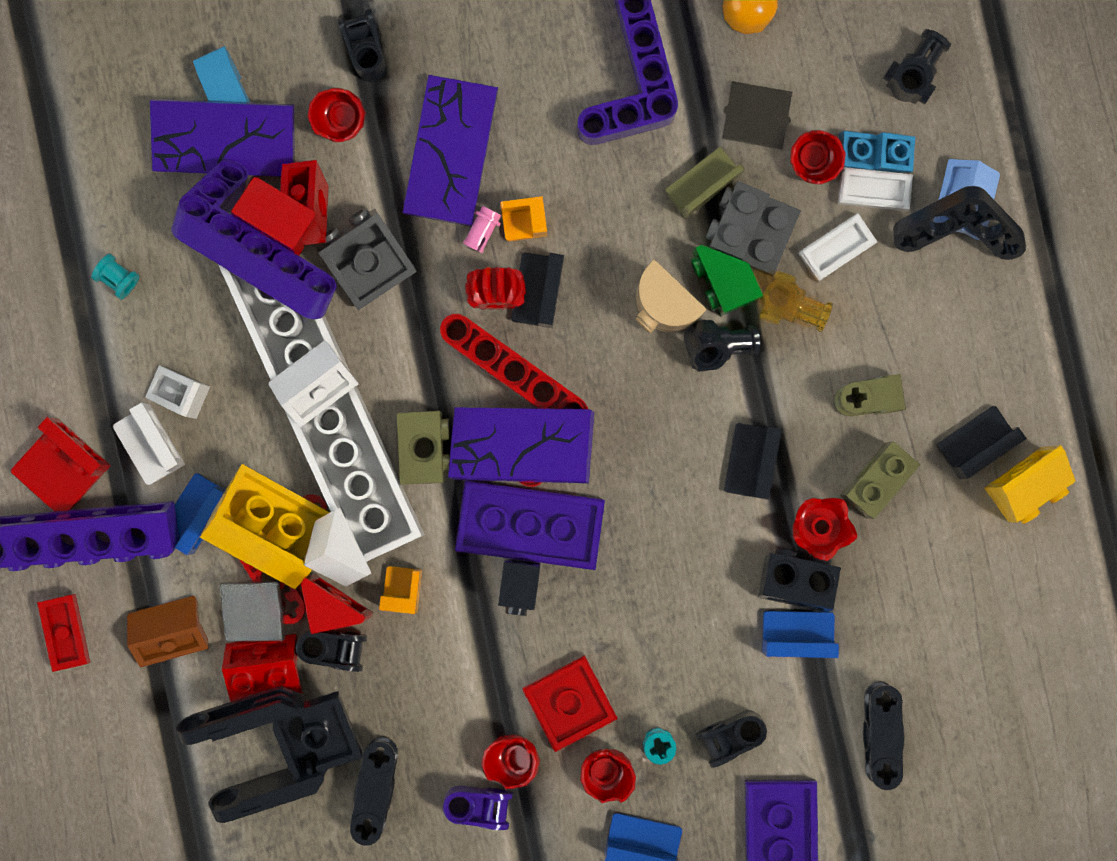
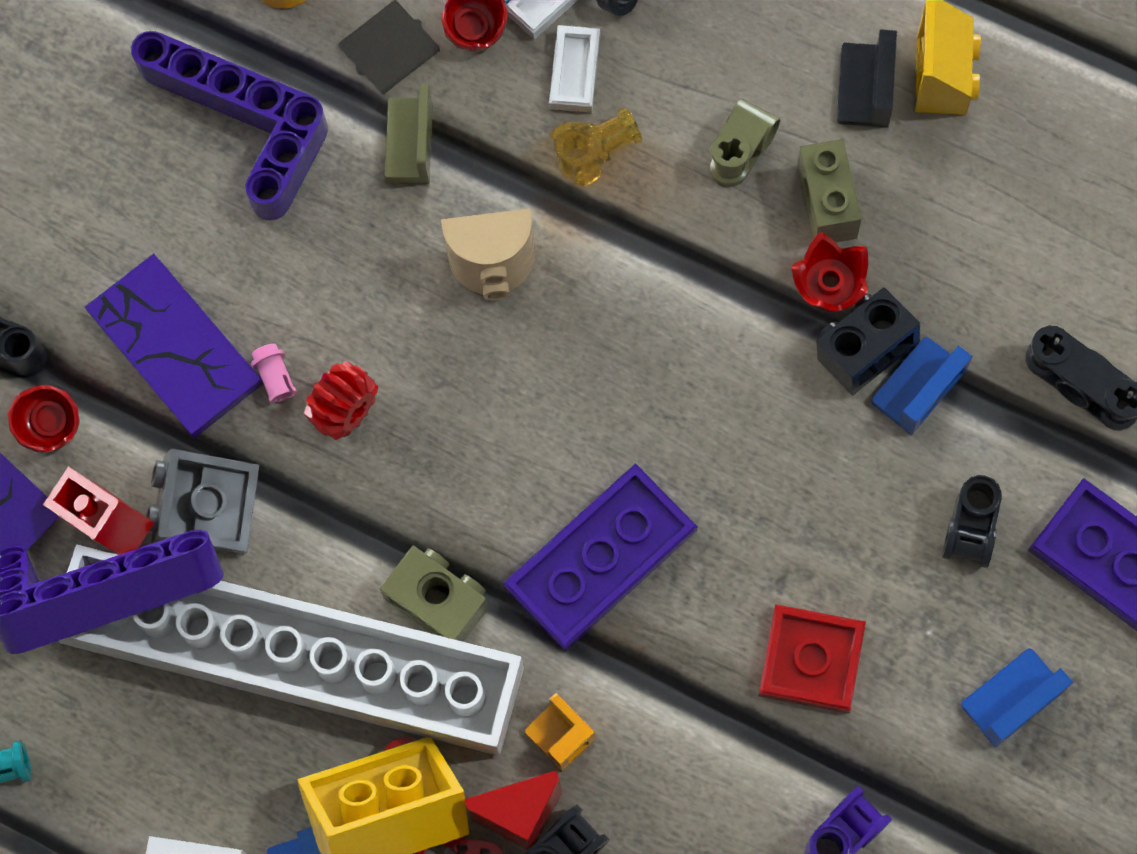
camera: 45 degrees left, 15 degrees down
(177, 392) = (170, 798): white slope -> none
(274, 214) = (84, 536): red panel -> none
(312, 383) = (280, 637): white panel -> none
(335, 550) = (464, 750): white slope -> none
(503, 357) = (461, 455): red beam -> none
(511, 761) = (825, 758): red hair -> none
(519, 586) = (651, 603): black brick -> none
(521, 445) = (513, 491): dark purple tile -> none
(524, 219) = (298, 324): light orange panel -> none
(542, 285) = (384, 361): black panel -> none
(608, 775) = (916, 673): red hair -> none
(653, 755) = (938, 598): teal bush -> none
(714, 344) = (570, 244): black connector -> none
(728, 280) = (517, 183): green slope -> none
(752, 461) = (714, 296): black panel -> none
(753, 227) = (490, 128): dark grey plate -> none

